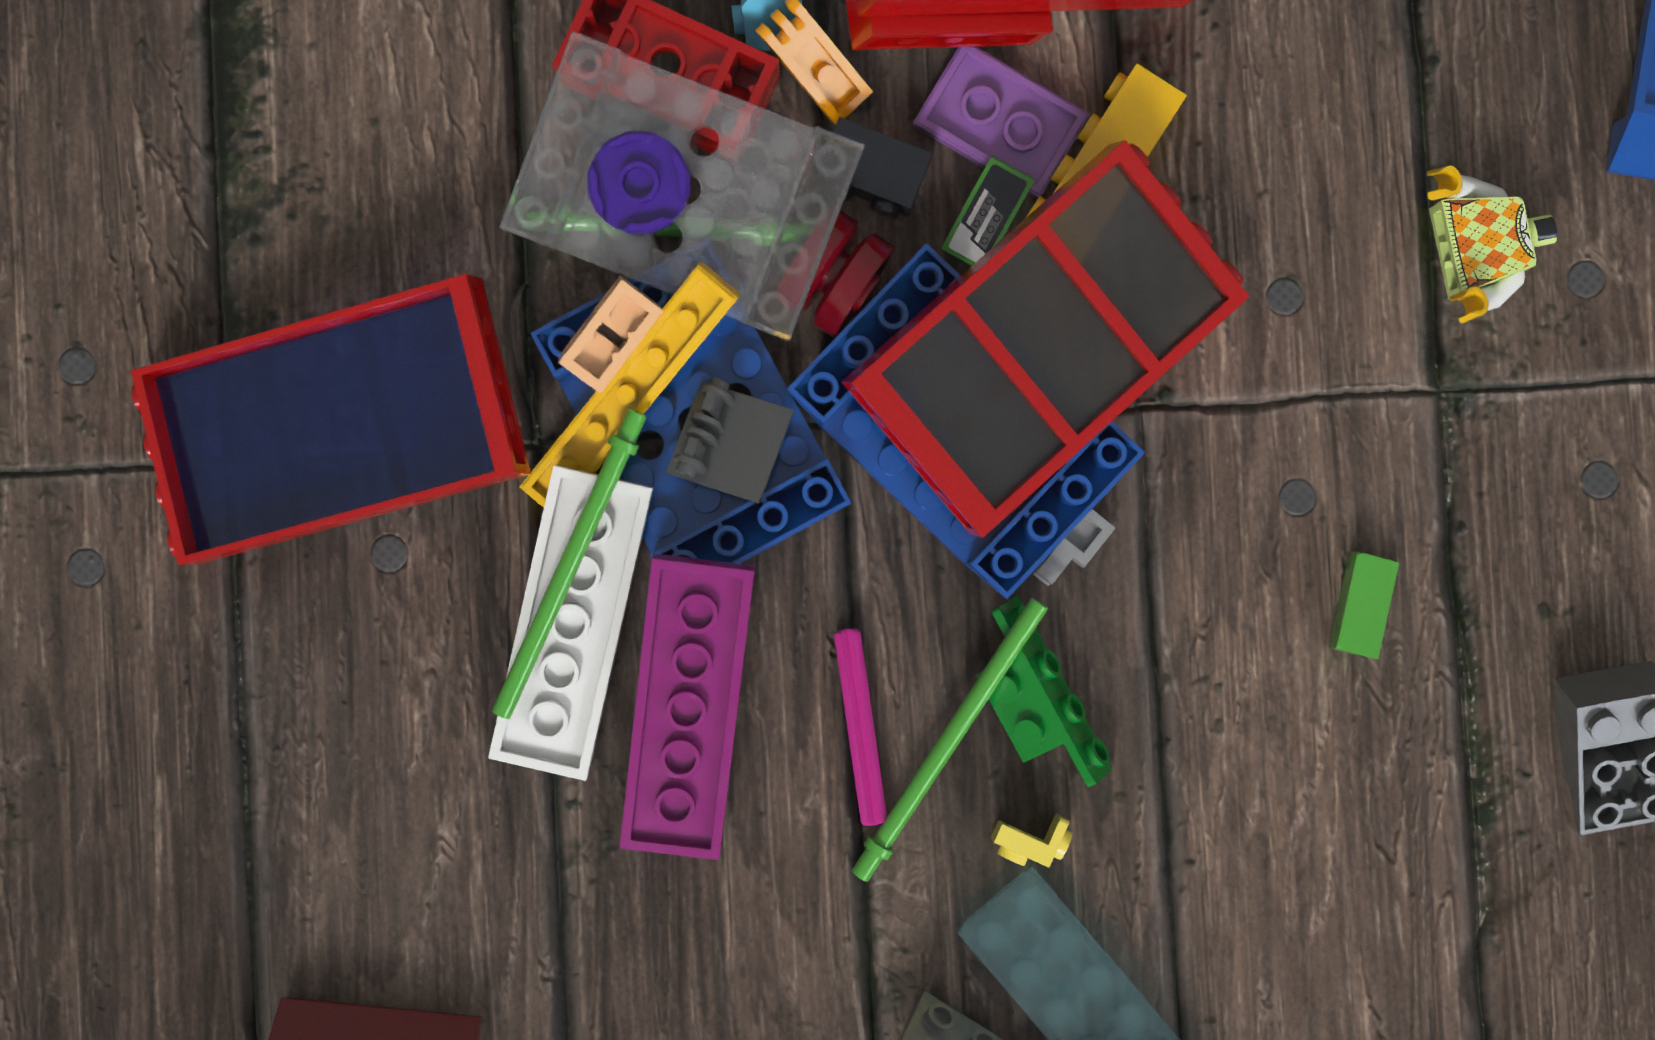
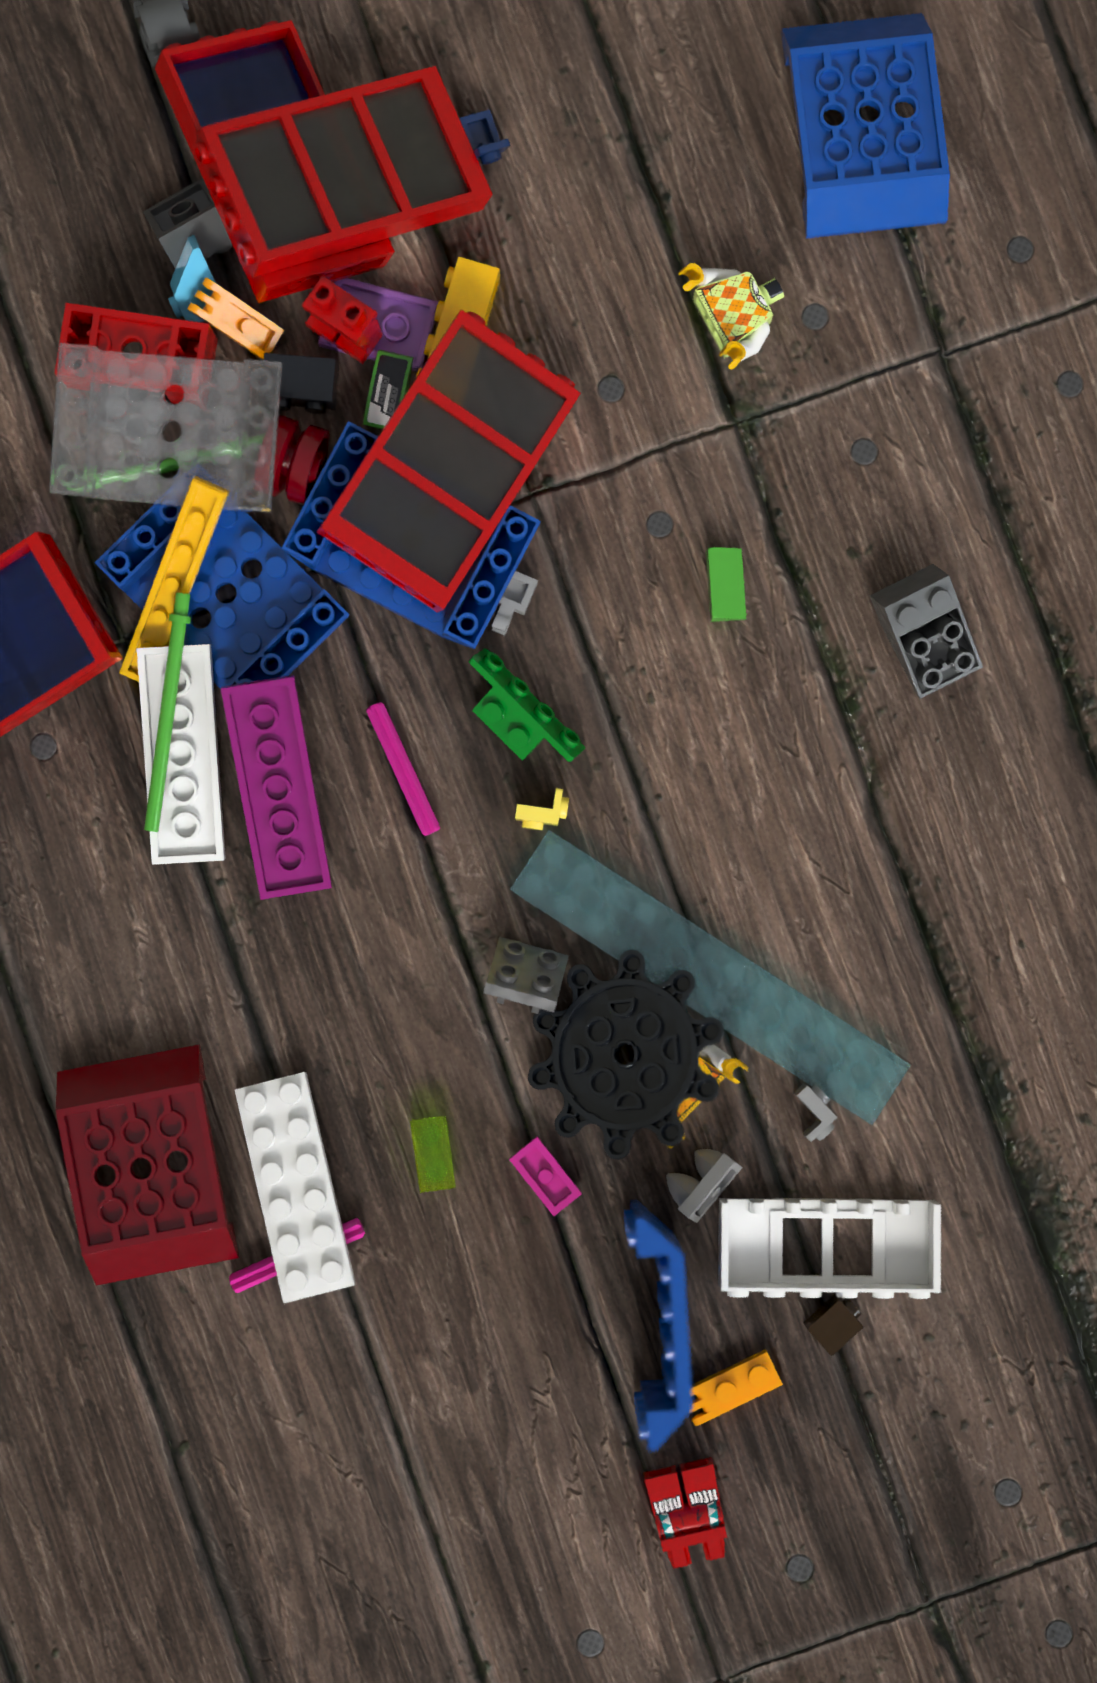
camera: 15 degrees left, 0 degrees up
(610, 334) = (147, 543): light nougat brick -> none
(639, 182) = (136, 434): dark purple tile -> none
(730, 441) = (253, 597): dark grey hinge -> none
(879, 845) = (439, 846): bright green bar -> none
(955, 90) = (338, 313): none -> red hips

